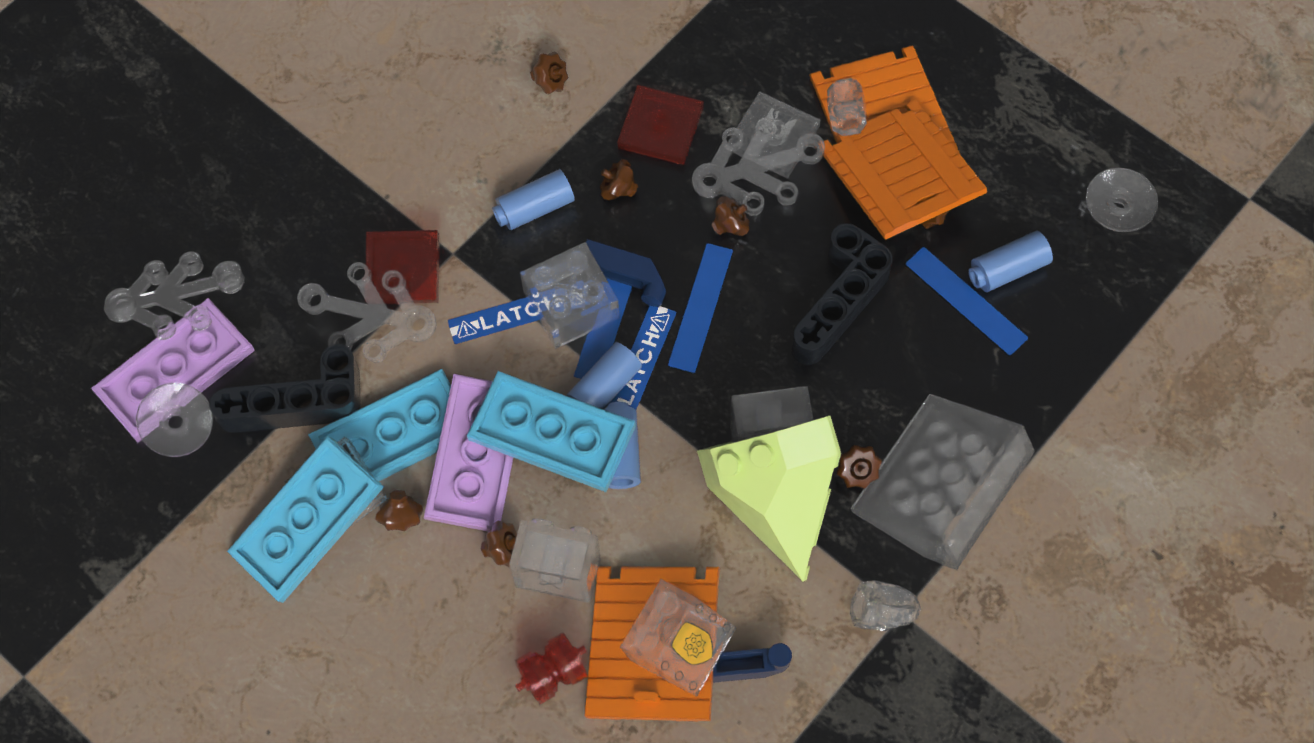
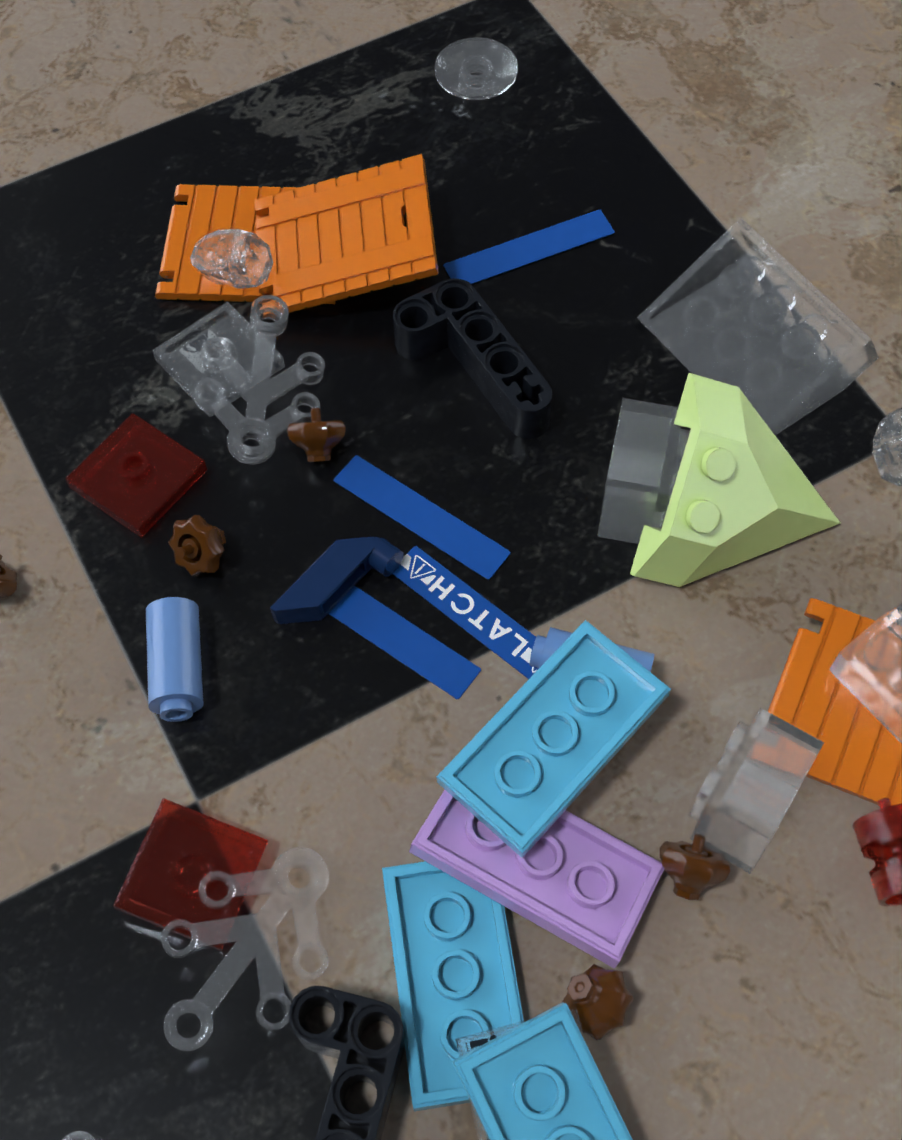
camera: 70 degrees left, 5 degrees down
(491, 320) = (330, 744): blue sticker -> none
(570, 295) = (345, 655): clear brick -> none
(607, 377) = (487, 650): medium blue brick -> none
(1010, 261) = (506, 184): medium blue brick -> none

